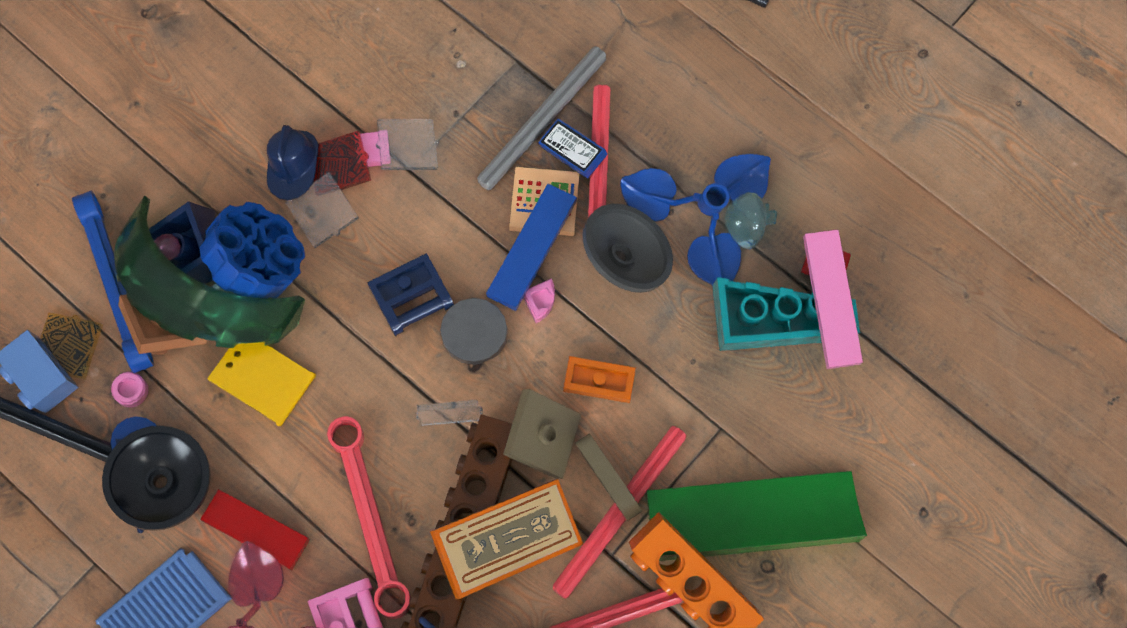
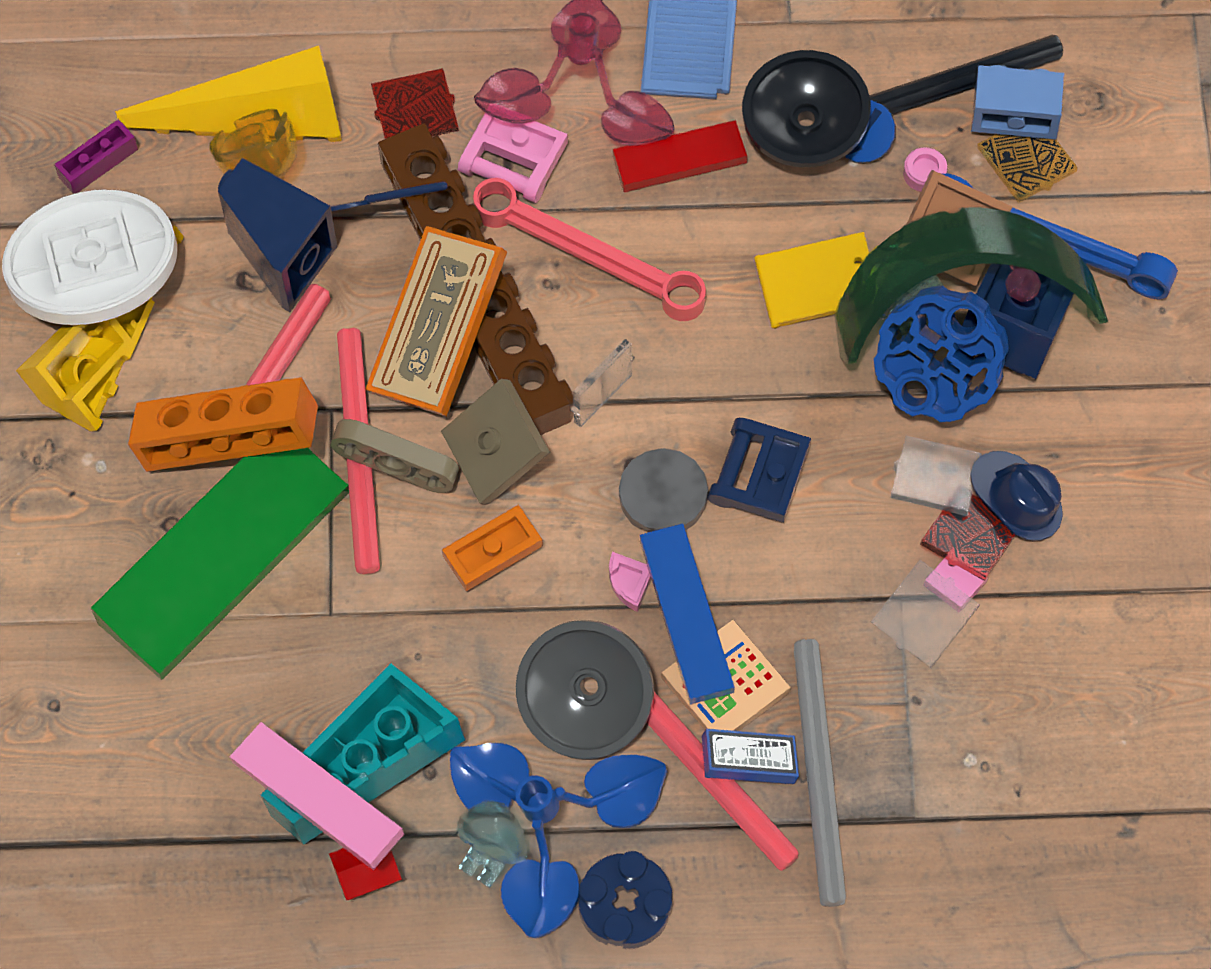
camera: 140 degrees right, 5 degrees down
(697, 123) = (618, 926): none -> dark blue plate

